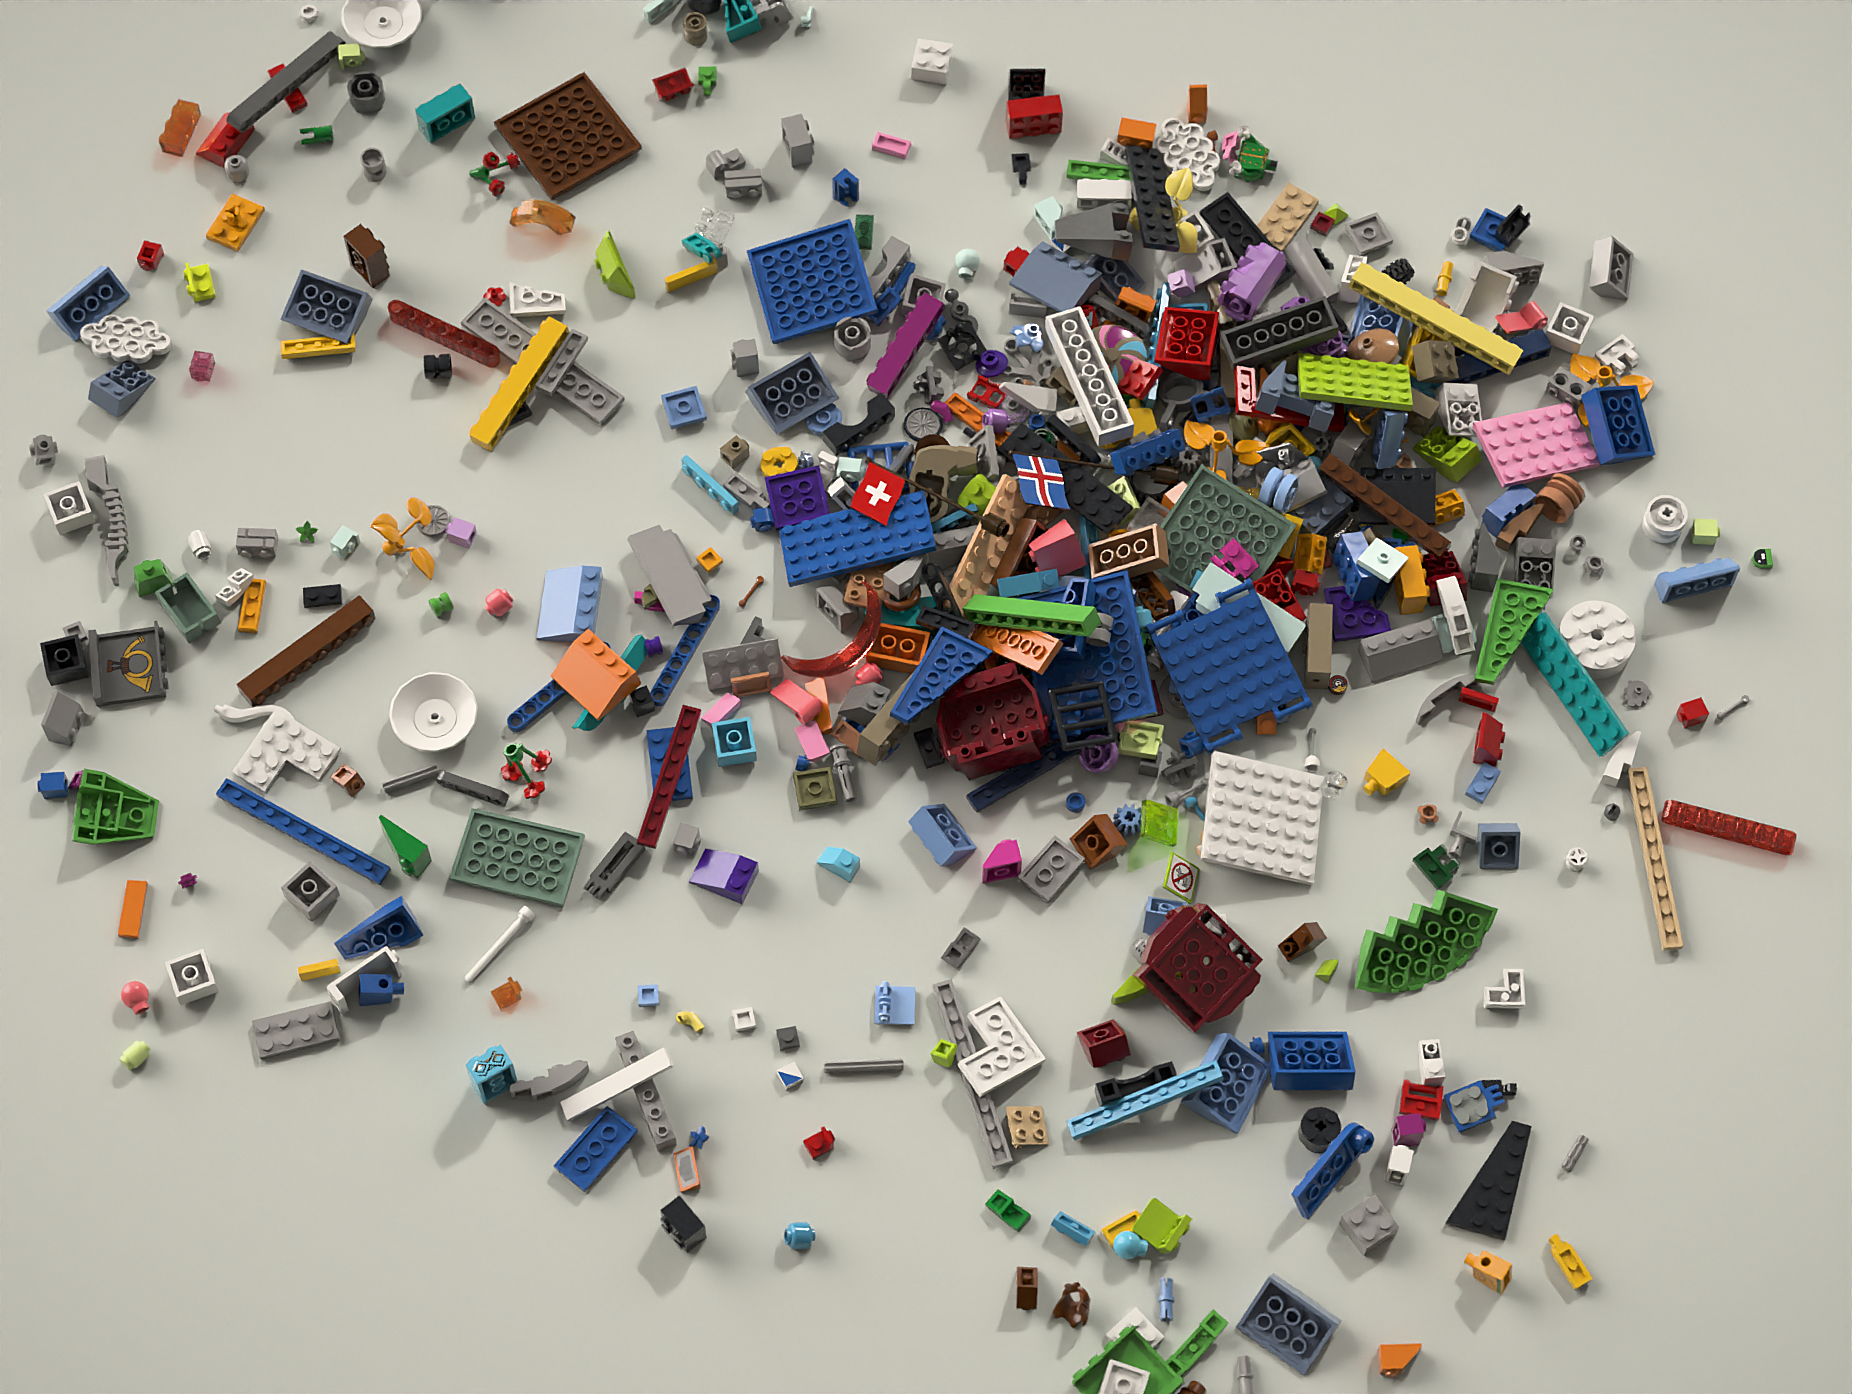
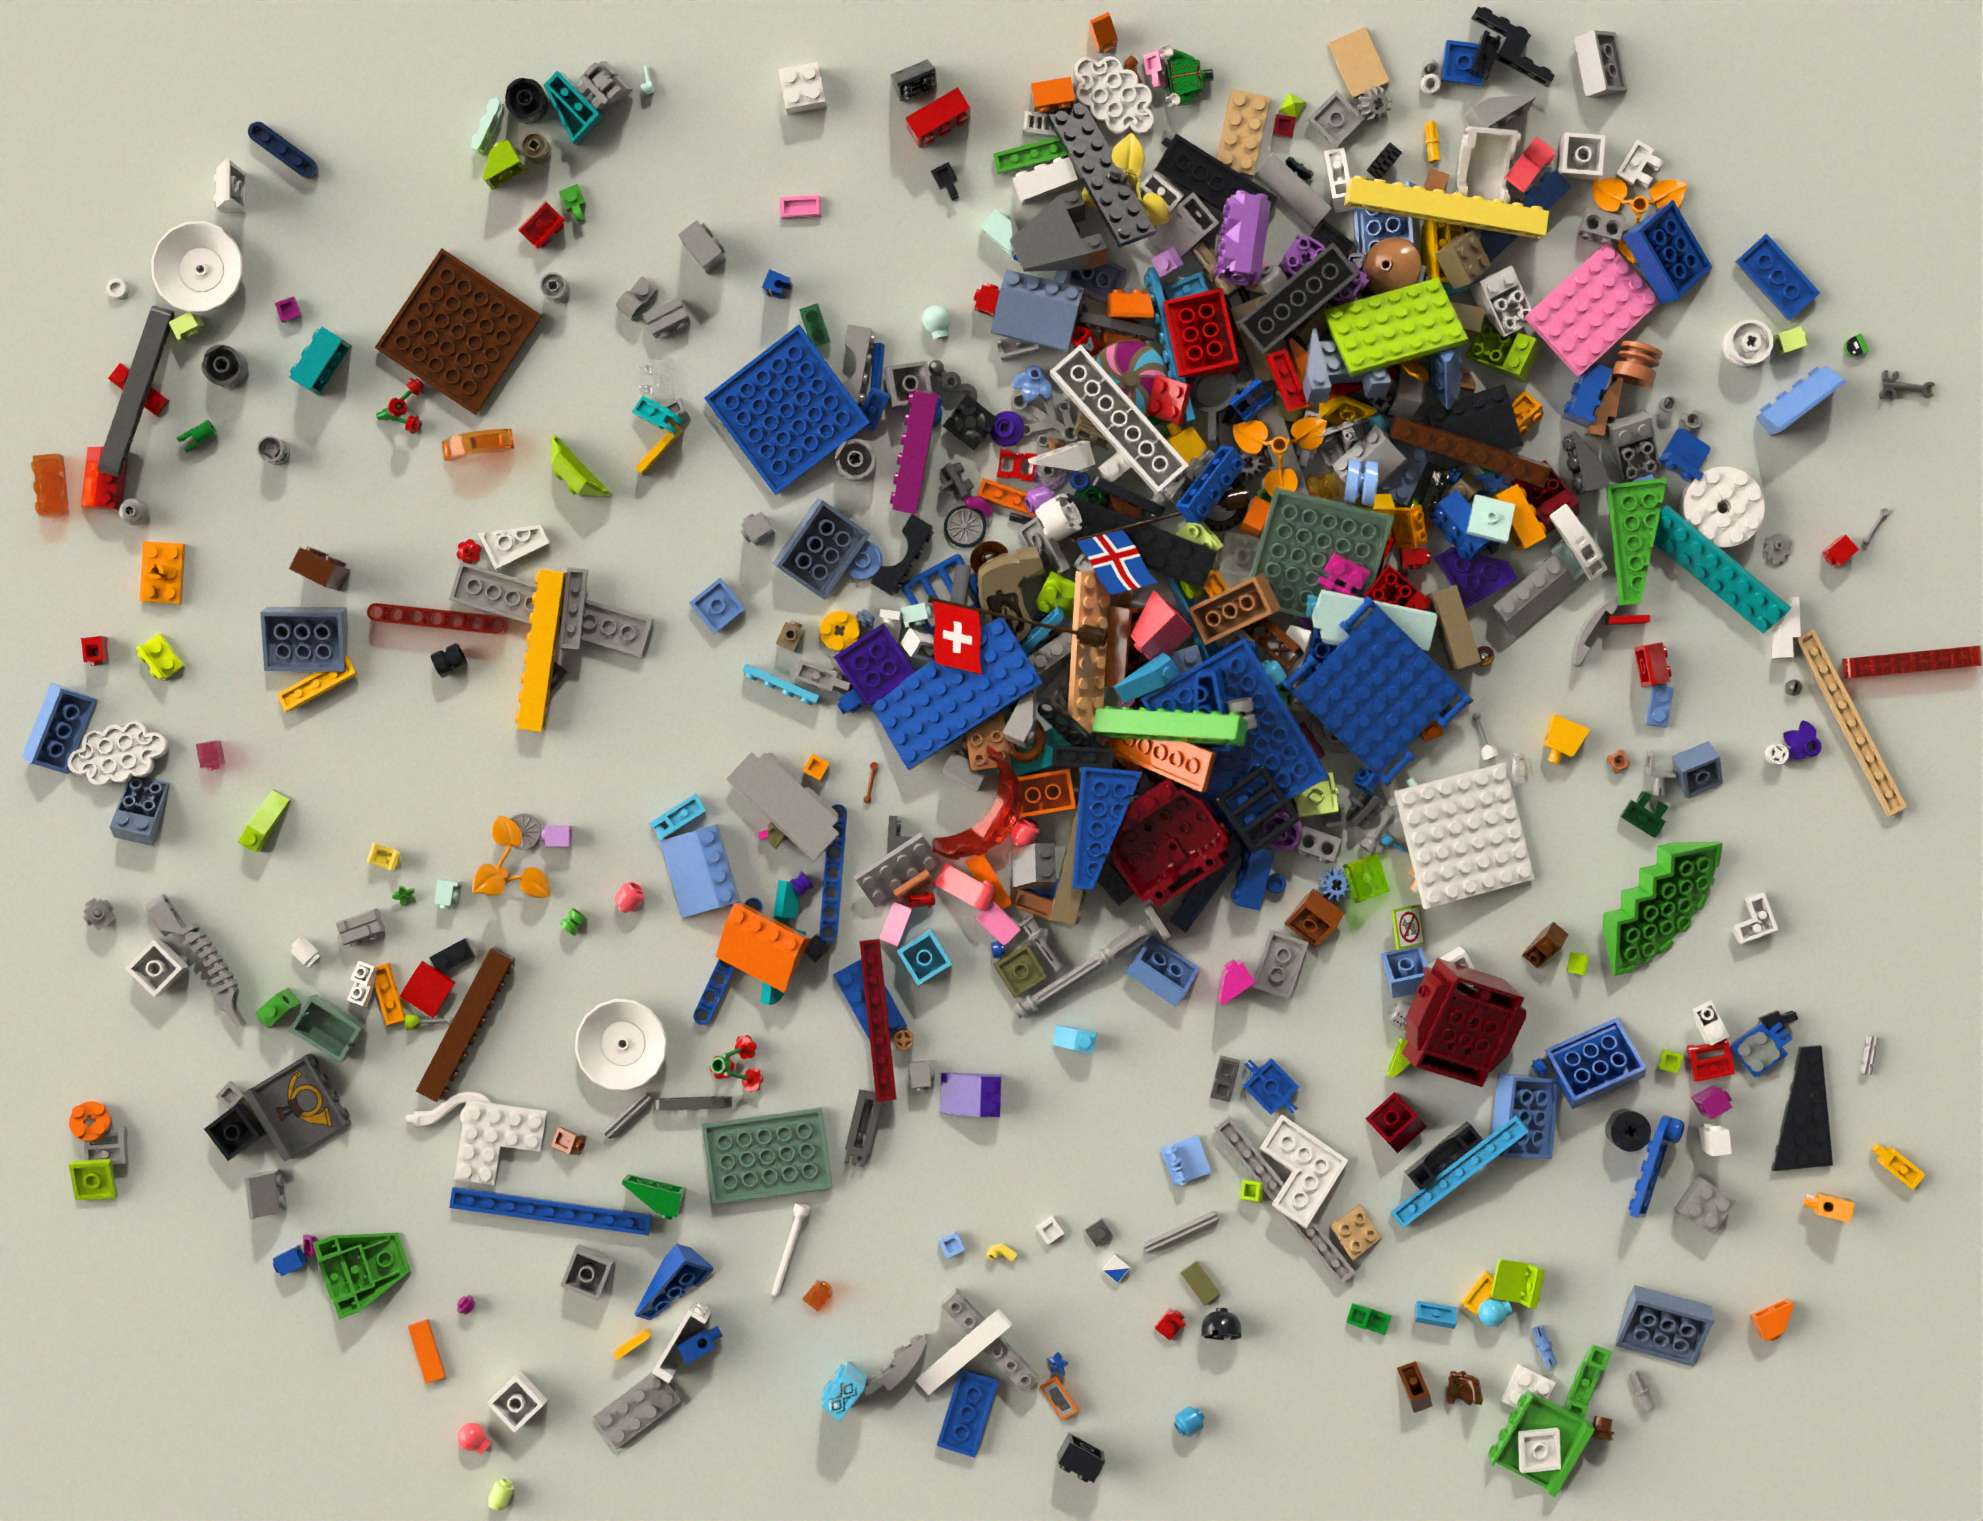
camera: 20 degrees left, 25 degrees up
(217, 433) = (263, 822): none -> lime slope
(261, 634) = (413, 1022): none -> hinge
(288, 612) = (427, 989): none -> red slope
(305, 495) = (384, 856): none -> light yellow bracket
(438, 73) = (288, 309): none -> magenta plate
(571, 556) = (678, 816): none -> medium azure plate
(662, 29) = (502, 164): none -> lime slope
(662, 129) = (554, 287): none -> light grey wheel
(682, 802) = (905, 1041): none -> medium nougat wheel
(753, 698) = (922, 900): none -> red pin
(862, 1118) = (1200, 1282): none -> olive tile
(865, 1160) = (1221, 1325): none -> black cylinder
(908, 798) = (1116, 949): none -> light grey piece
(1000, 968) = (1270, 1086): none -> blue plate
(1006, 431) = (1059, 517): none -> white brick
(1055, 783) = (1252, 878): none -> blue brick
(1097, 535) = (1190, 590): none -> lime tile
(1130, 777) = (1319, 839): none -> light grey brick
(1382, 1086) = (1670, 1061): none -> lime plate
(1399, 230) = (1378, 96): none -> light grey gear
(1404, 201) = (1358, 62): none -> tan tile
(1540, 232) = (1513, 46): none -> black bracket
(1578, 586) = (1685, 455): none -> blue bracket
(1602, 858) = (1800, 739): none -> dark purple plate
(1710, 480) = (1777, 277): none -> blue plate
(1785, 600) = (1891, 386): none -> dark grey bar

